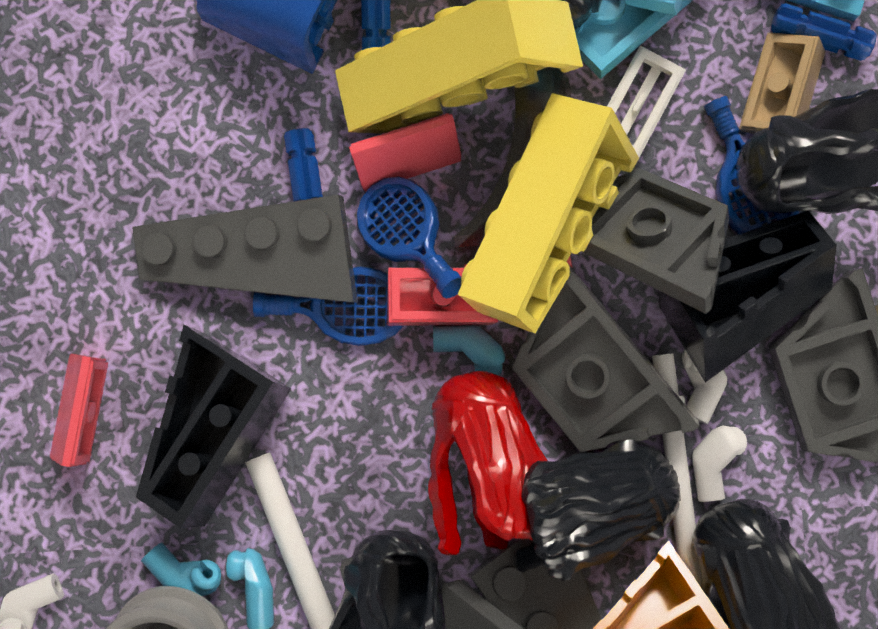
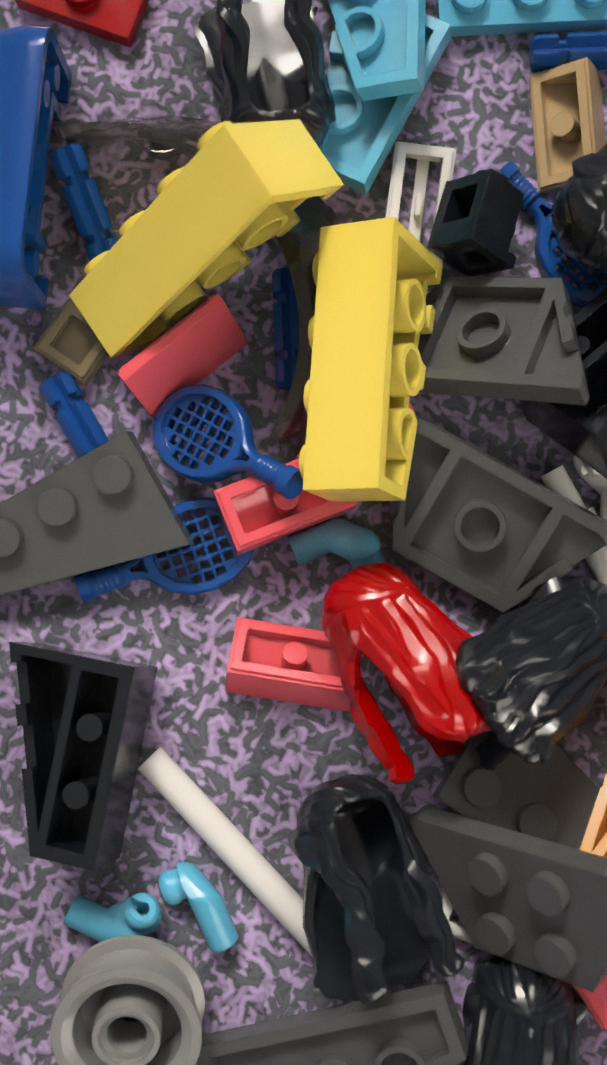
camera: 20 degrees left, 0 degrees up
(322, 109) = (72, 344): none -> dark tan tile
(391, 426) = (285, 665): none -> coral slope
(495, 160) = (285, 327): none -> blue axle
(678, 135) = (476, 223): none -> black brick

